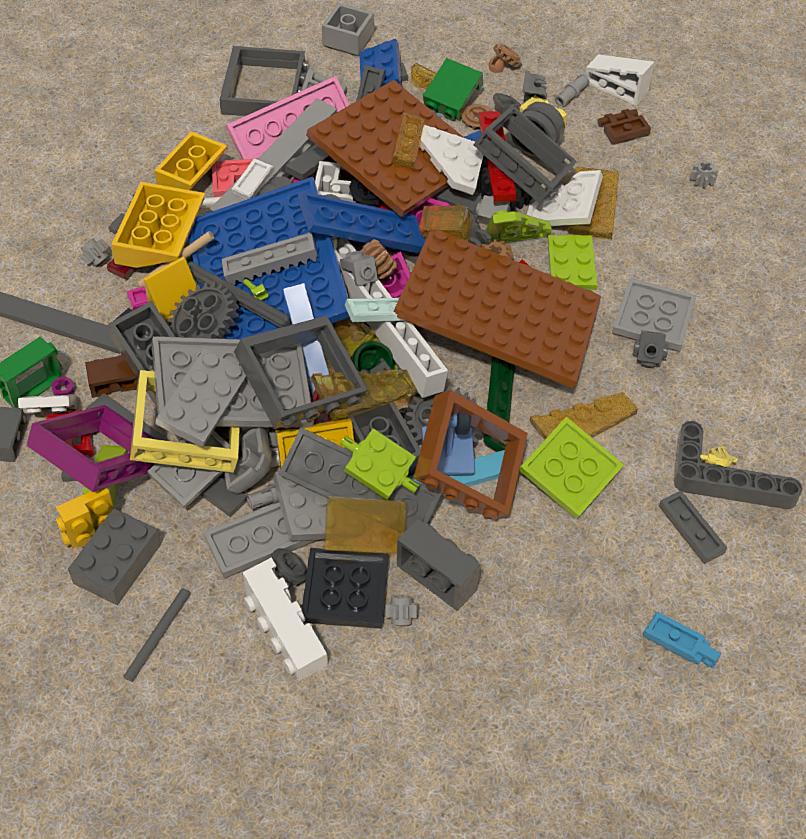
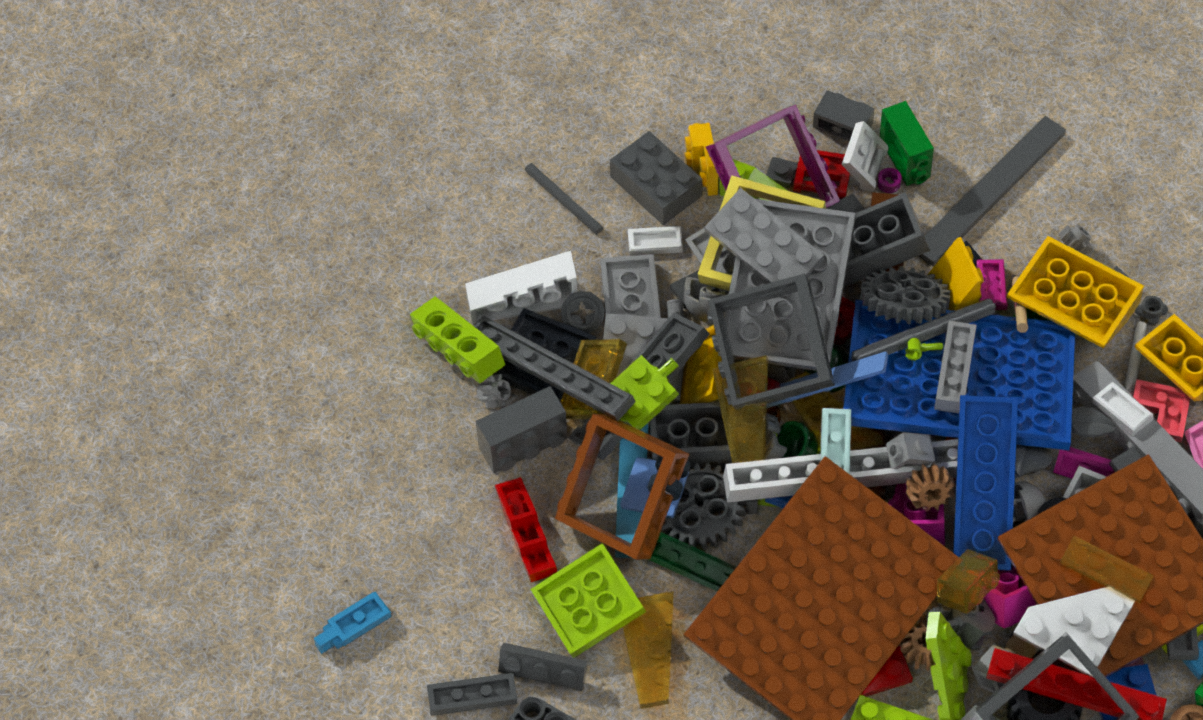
camera: 115 degrees right, 5 degrees up
(182, 543) = (655, 240): none -> white tile
(372, 555) = (557, 371): none -> dark grey tile
(377, 611) = (457, 340): none -> lime brick
(523, 541) = (526, 529): none -> red slope
(644, 483) = (542, 666): none -> dark grey plate

